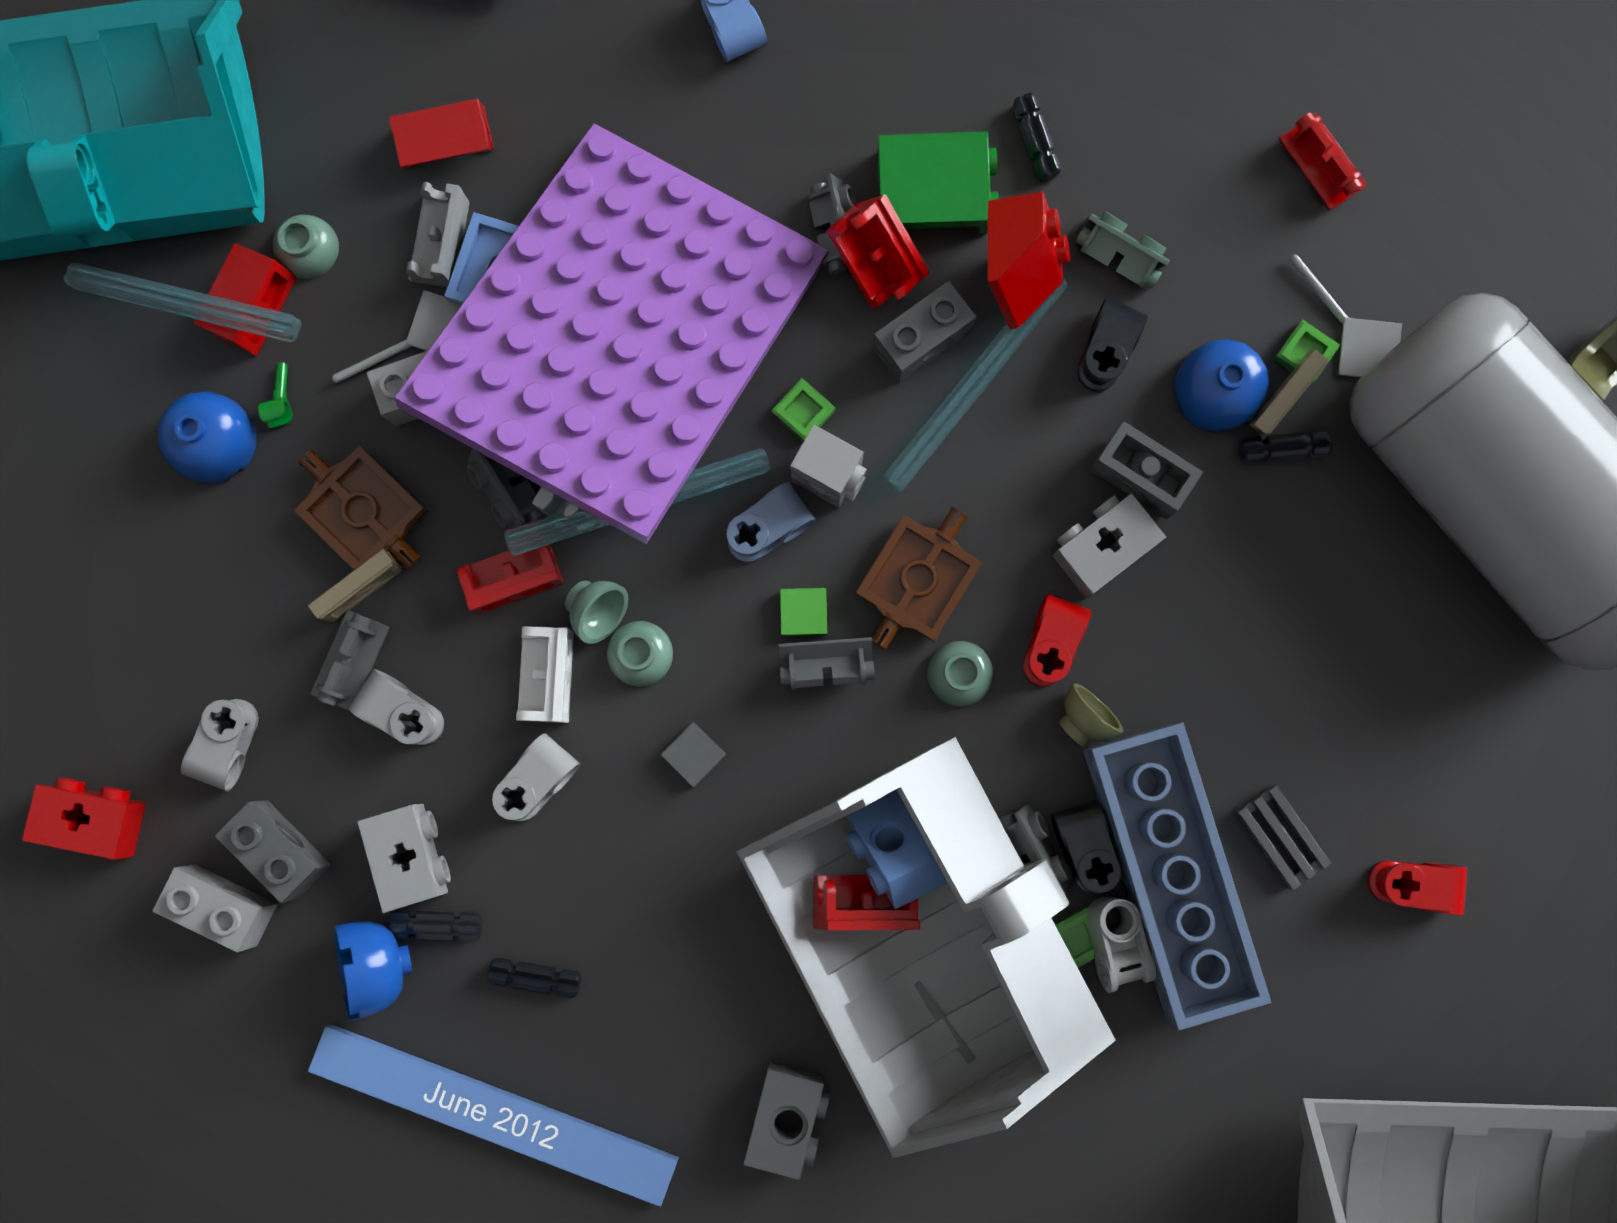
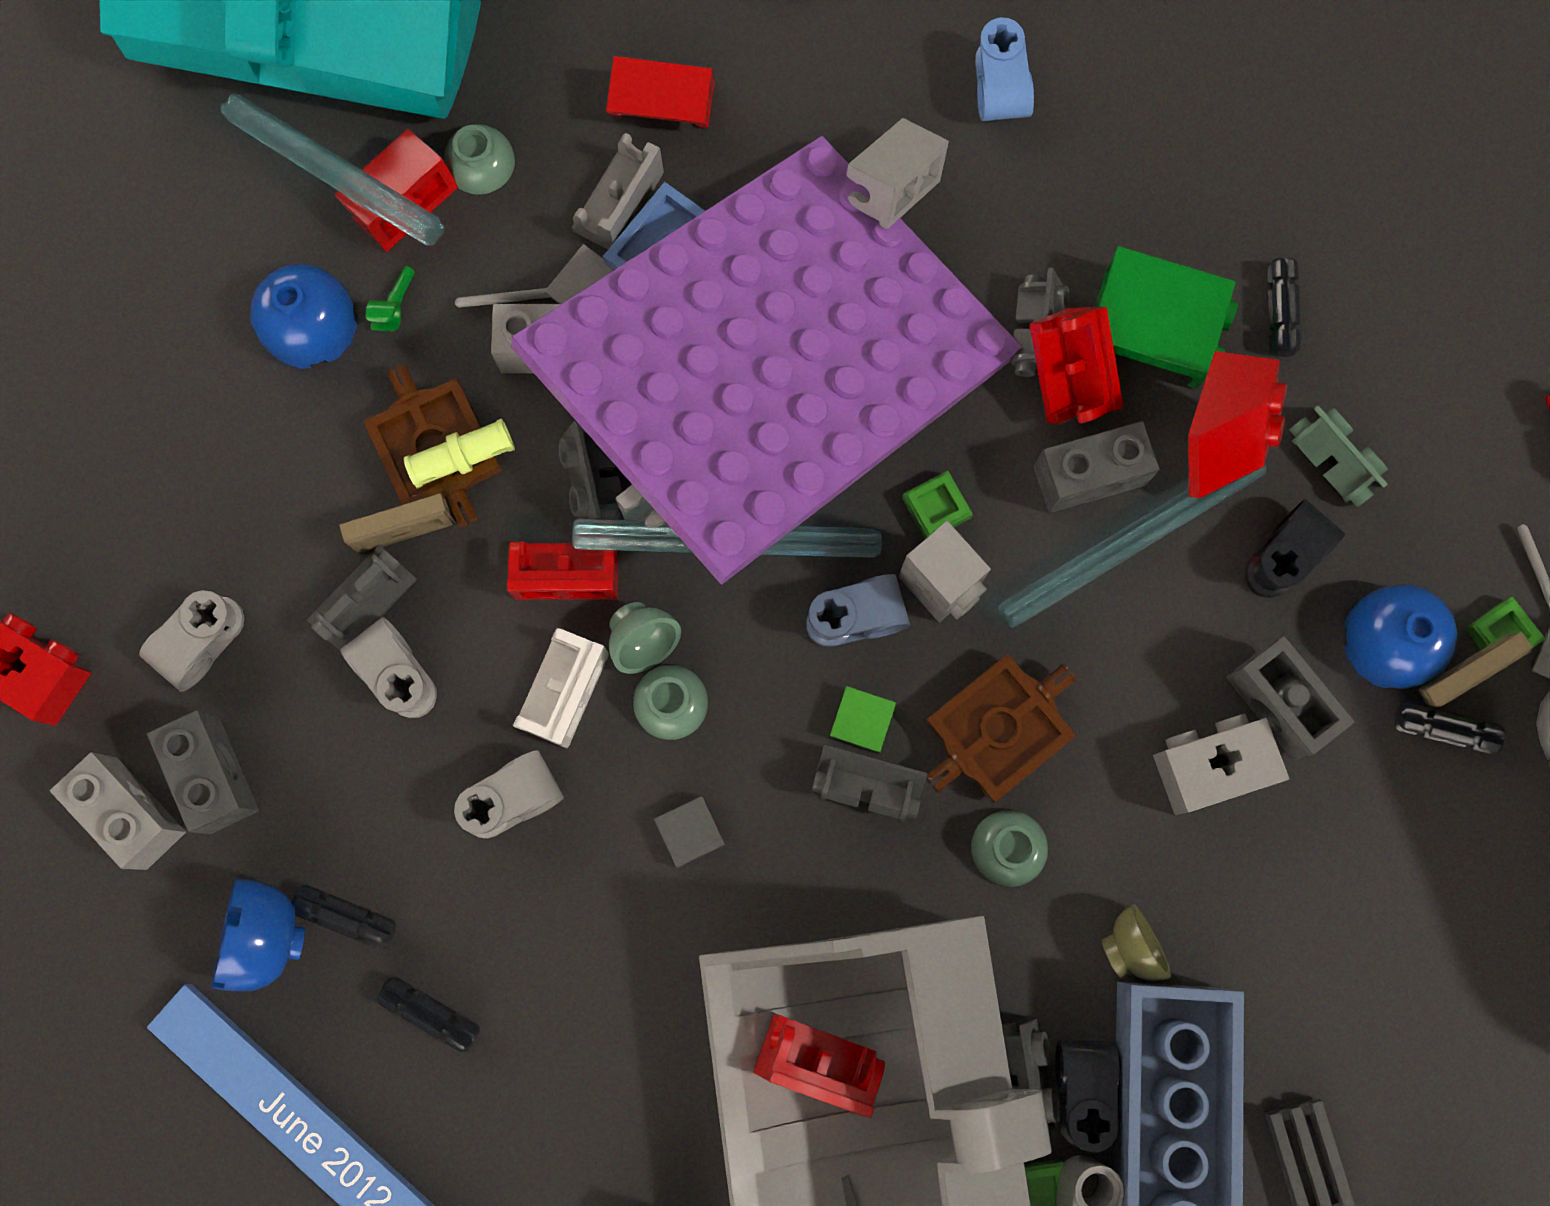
camera: 15 degrees right, 5 degrees down
(385, 509) = (458, 453): none -> yellowish green pin
(393, 834) = (329, 803): light grey brick -> none
(669, 134) = (897, 171): none -> light grey hinge
(898, 873) = (871, 1047): medium blue brick -> none
(1058, 632) = (1133, 841): red piece -> none

